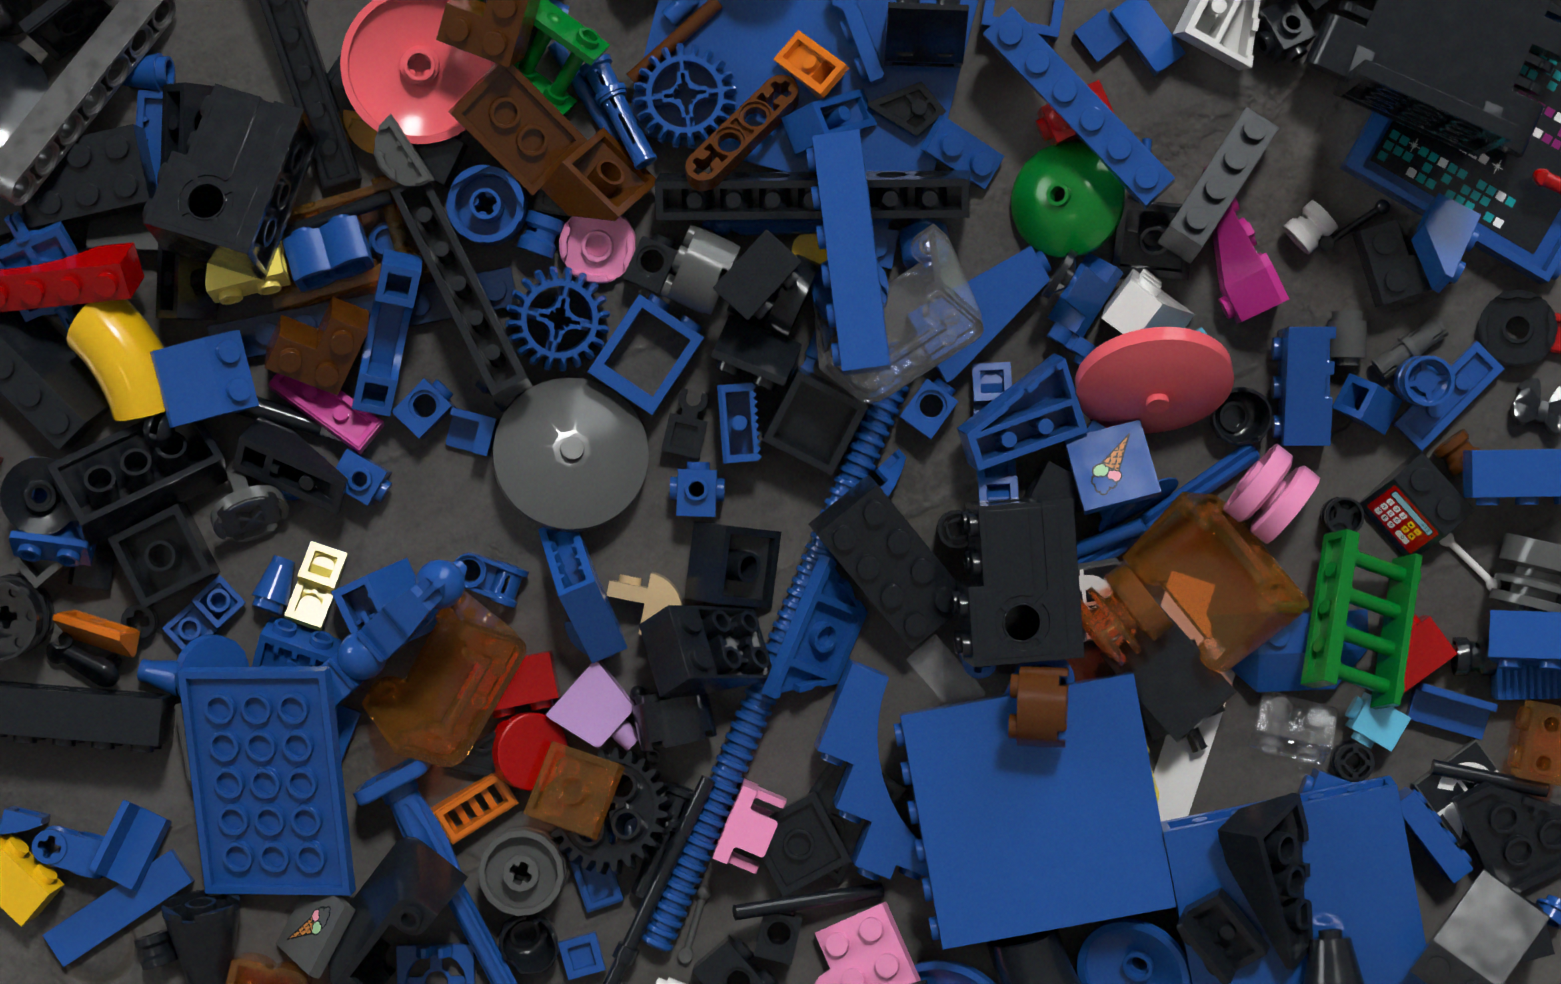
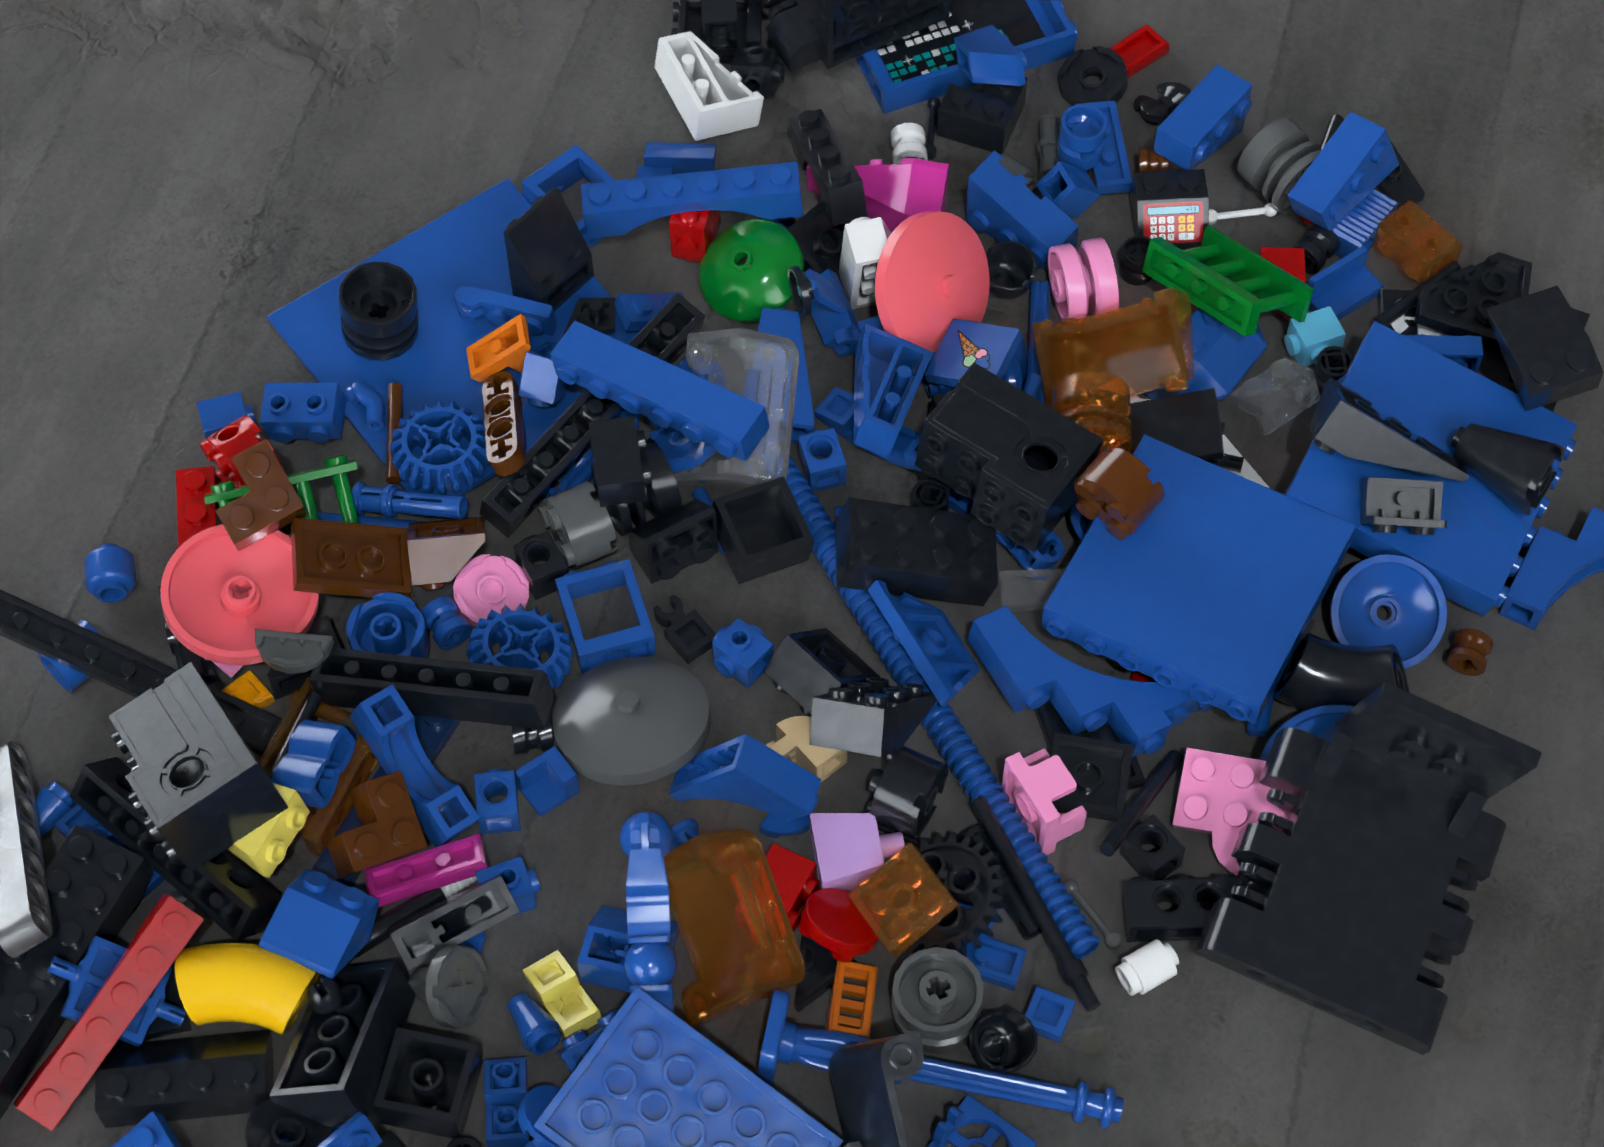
camera: 50 degrees left, 30 degrees down
(738, 423) = (716, 584): blue brick -> none

